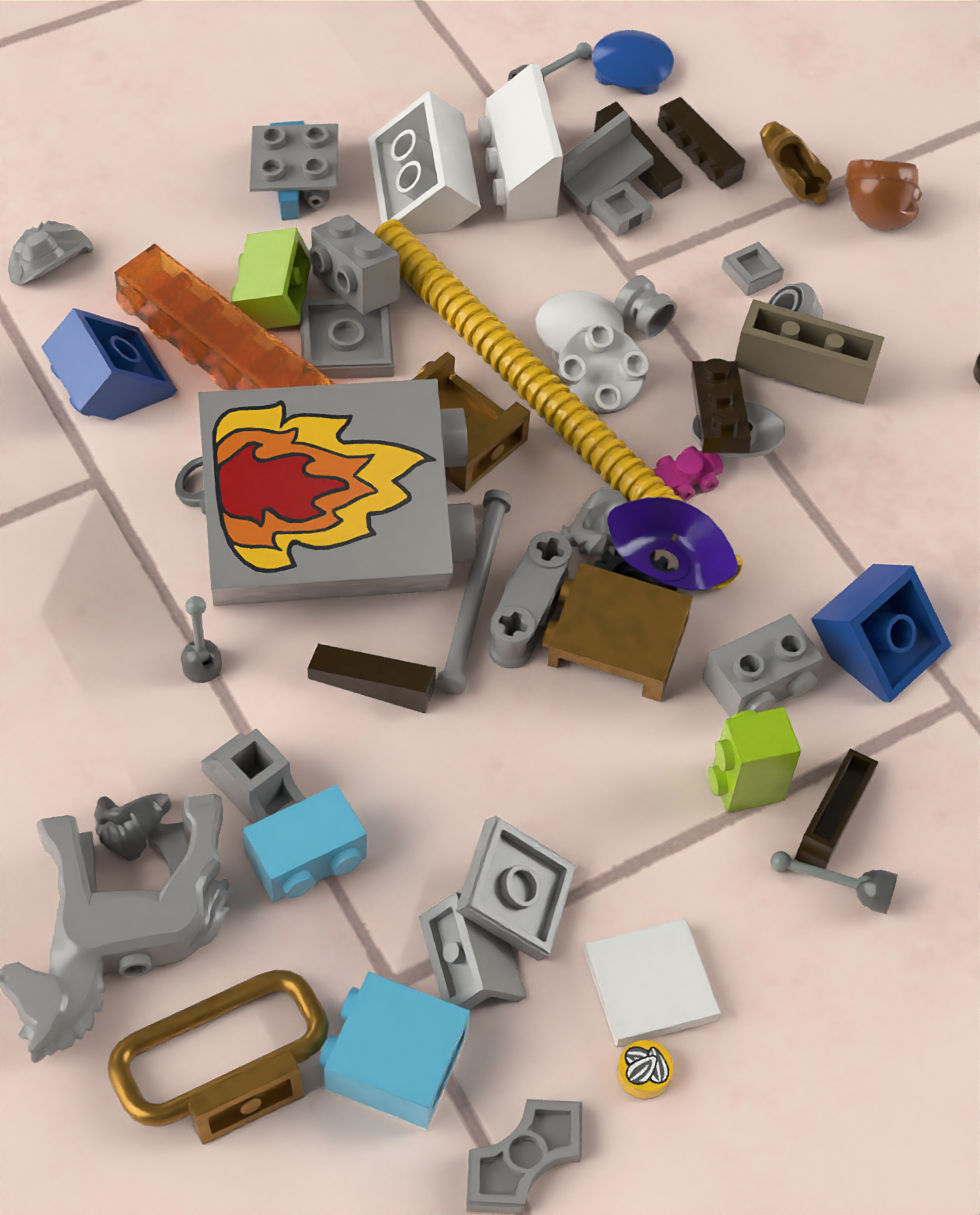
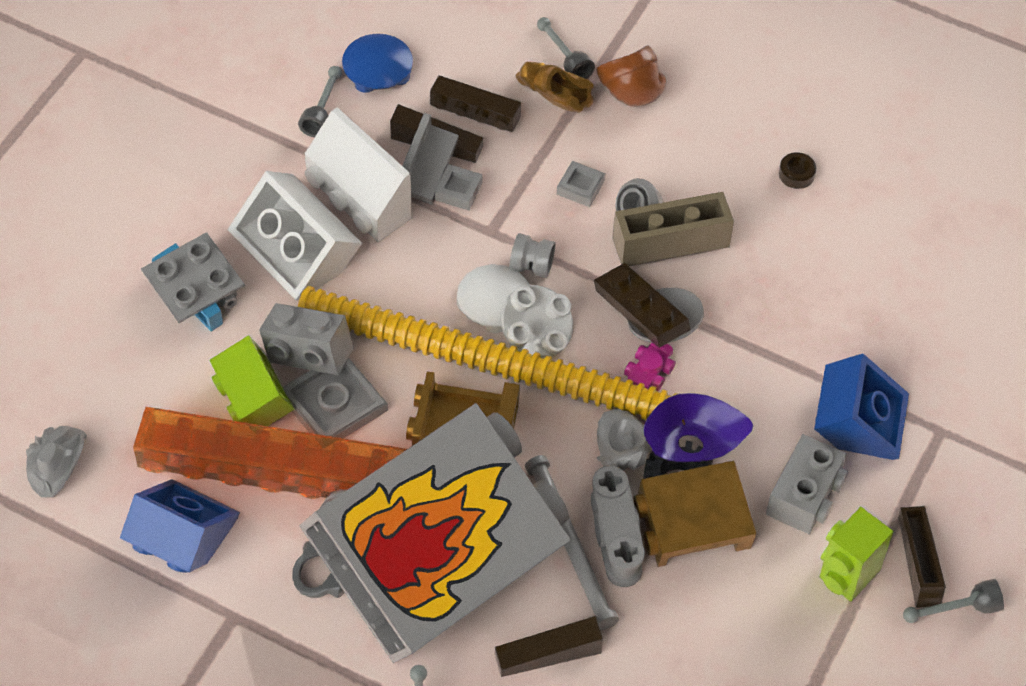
camera: 30 degrees left, 0 degrees up
(834, 149) = (572, 59): none -> dark grey hinge

